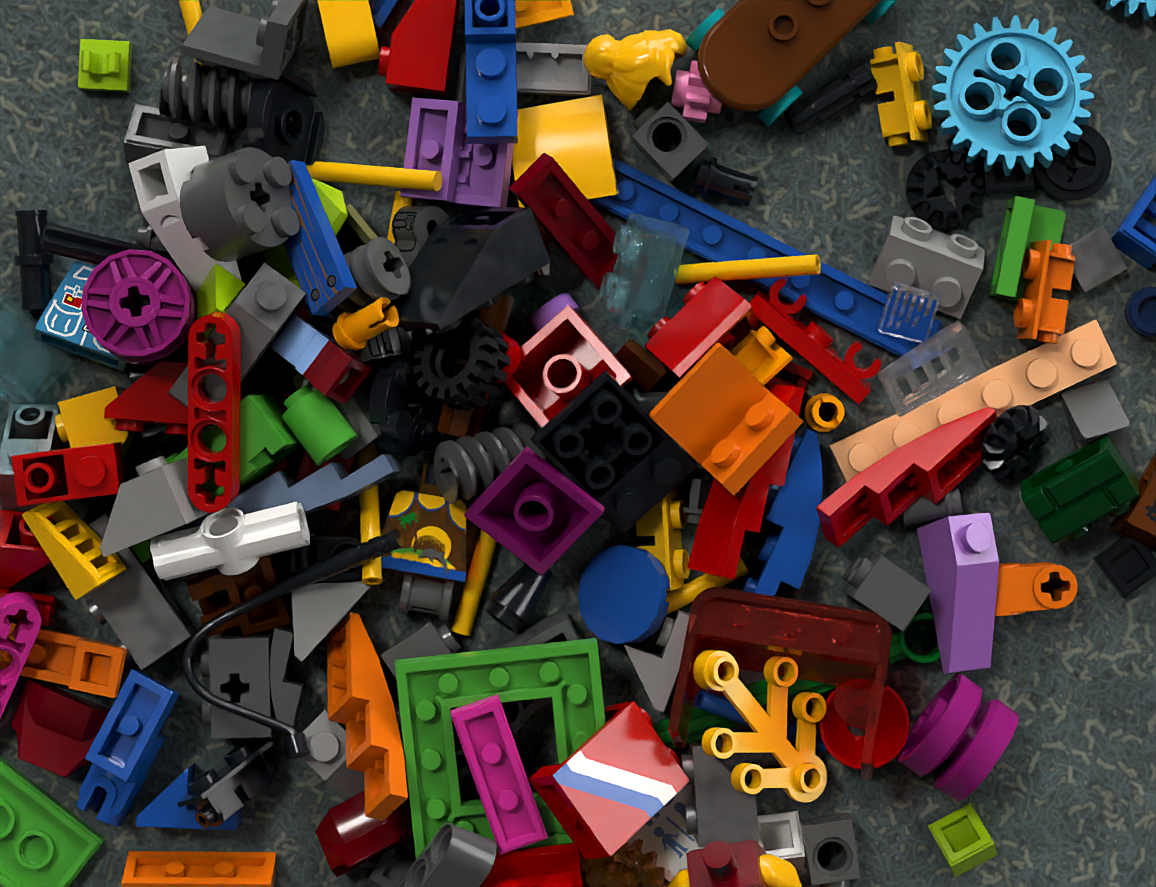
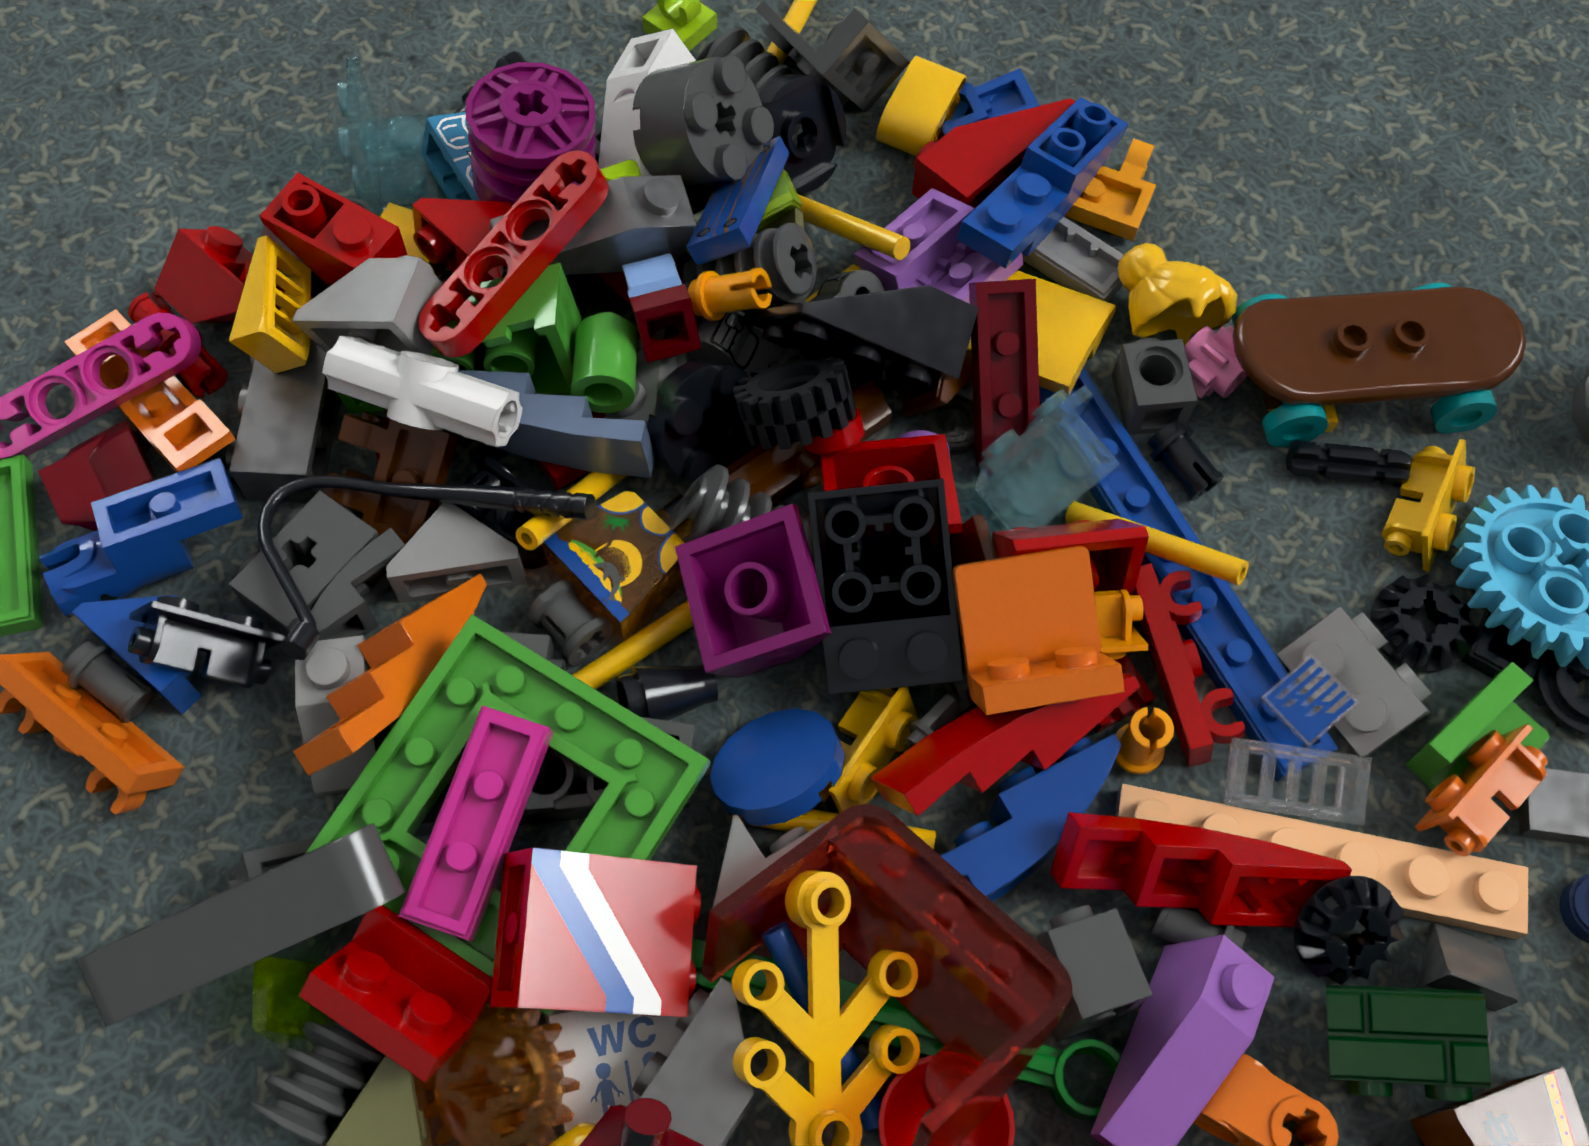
camera: 35 degrees right, 25 degrees down
(188, 843) = (107, 680): none -> dark grey pin
(354, 839) = (282, 802): dark red slope -> none

